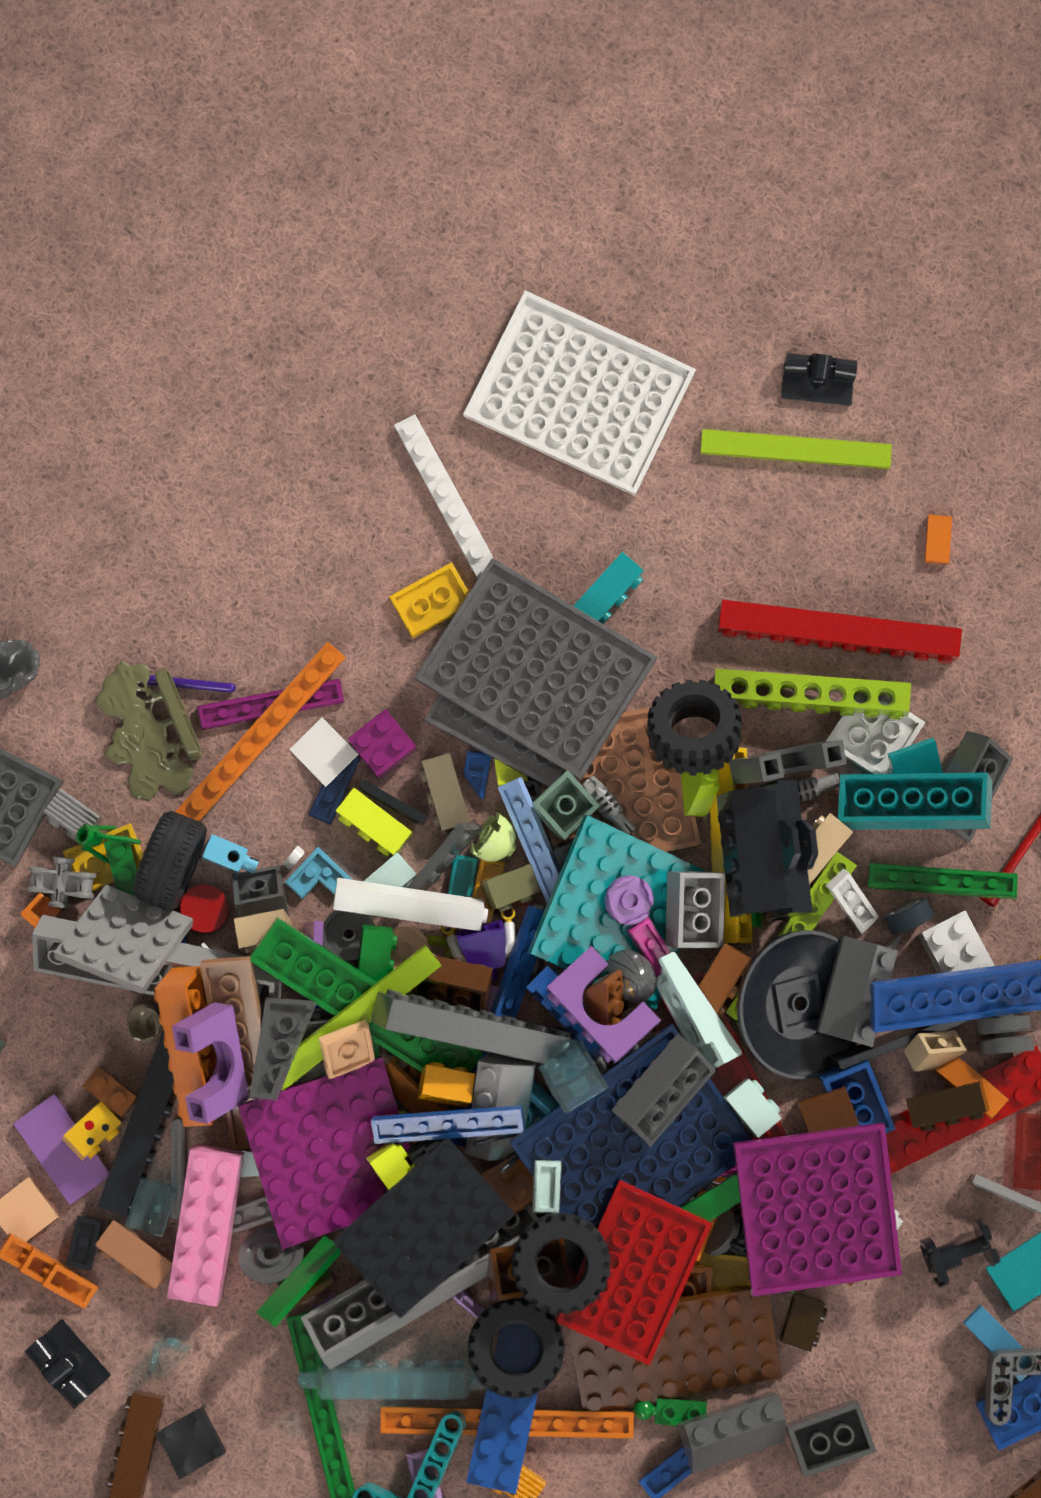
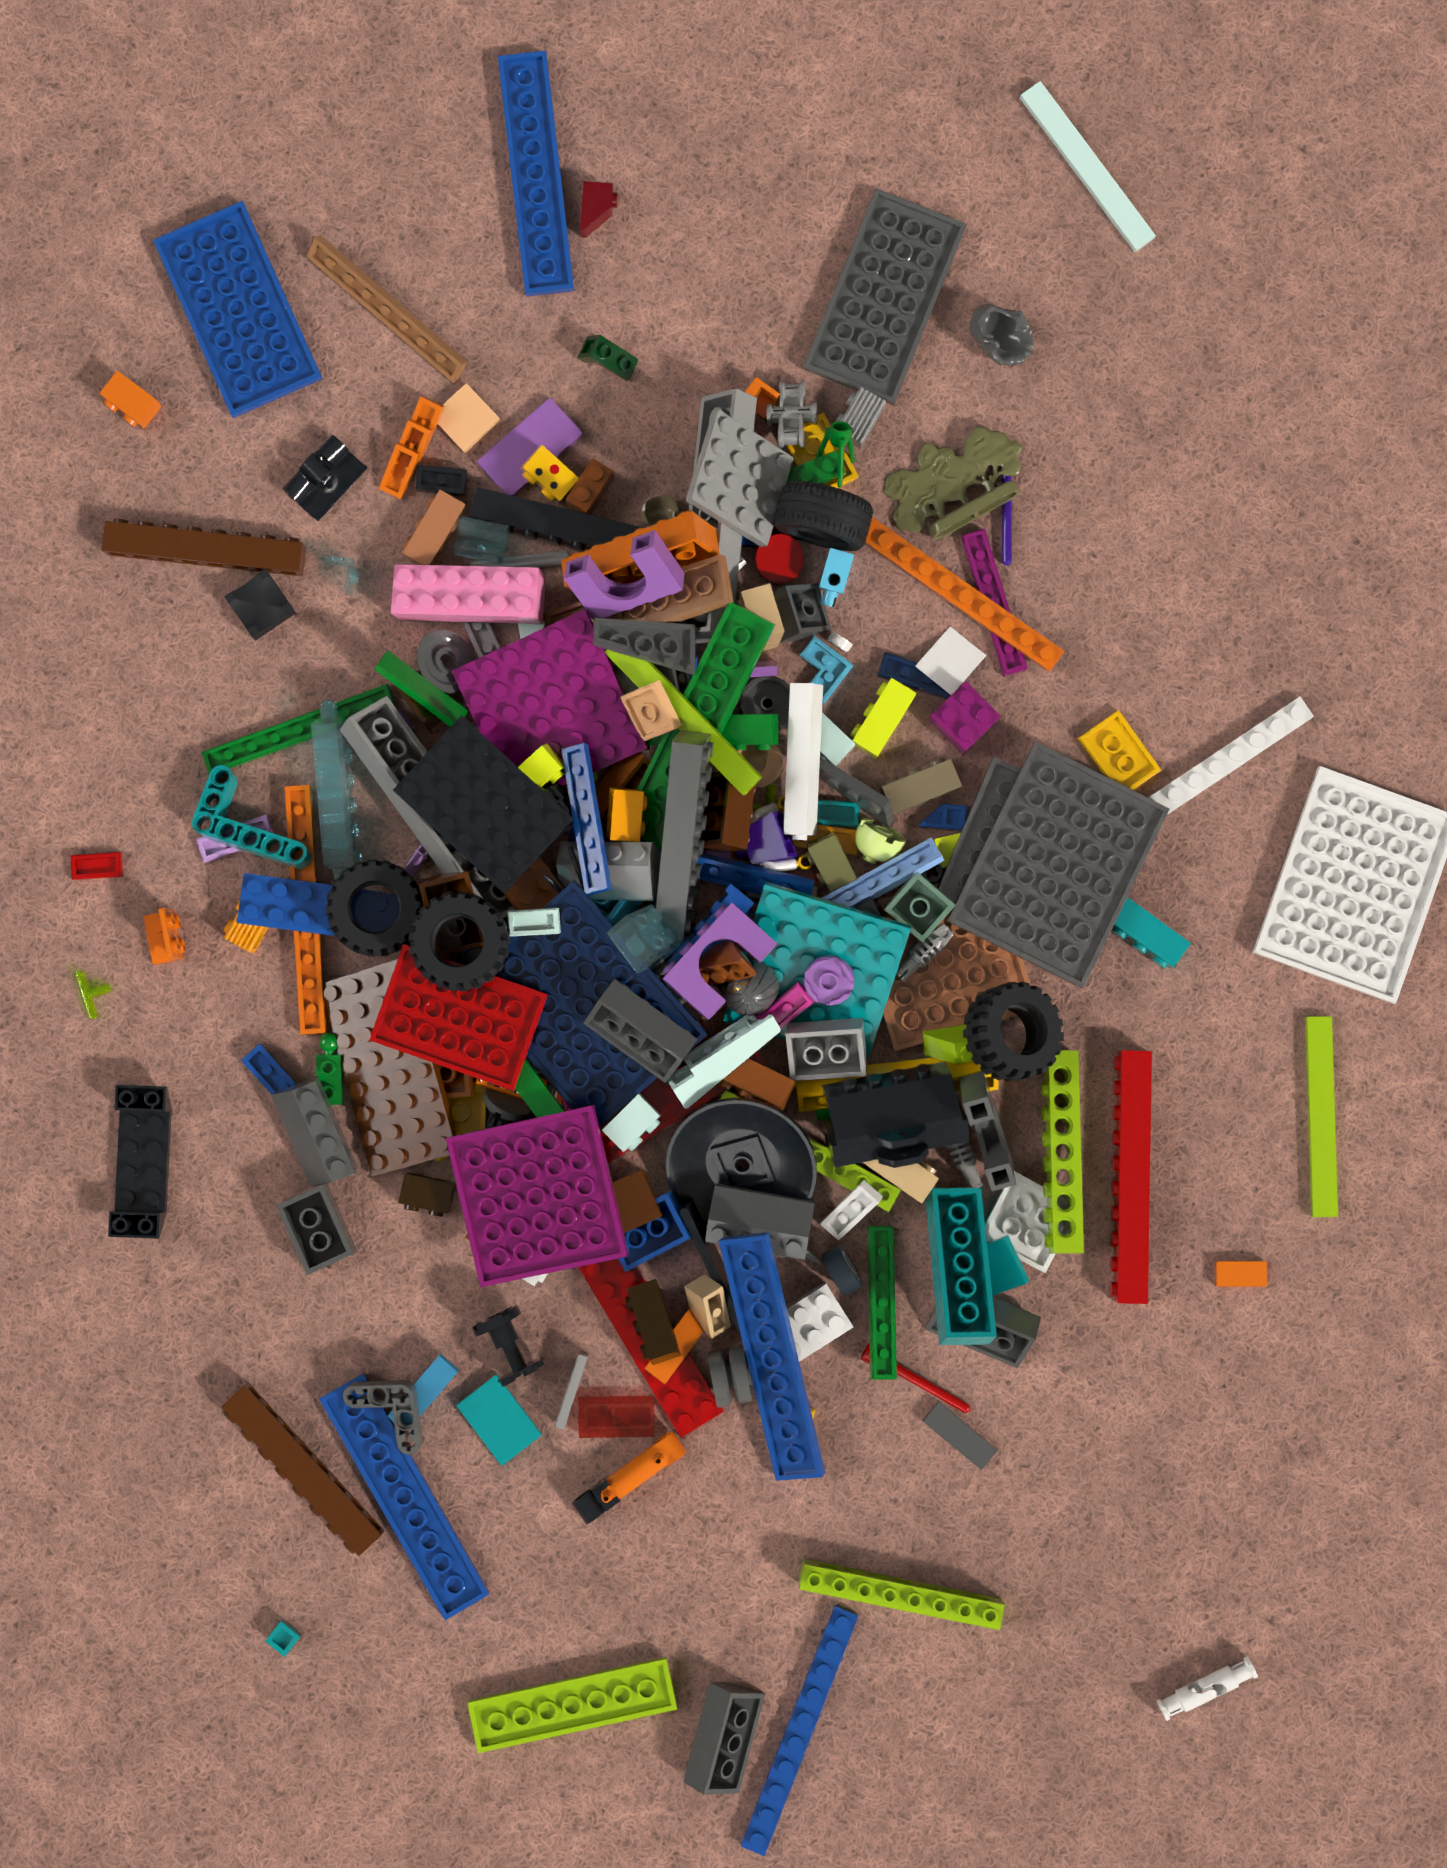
camera: 85 degrees right, 5 degrees up
(393, 803) = (905, 735): black tile -> none
(818, 378) = (1400, 1134): black panel -> none

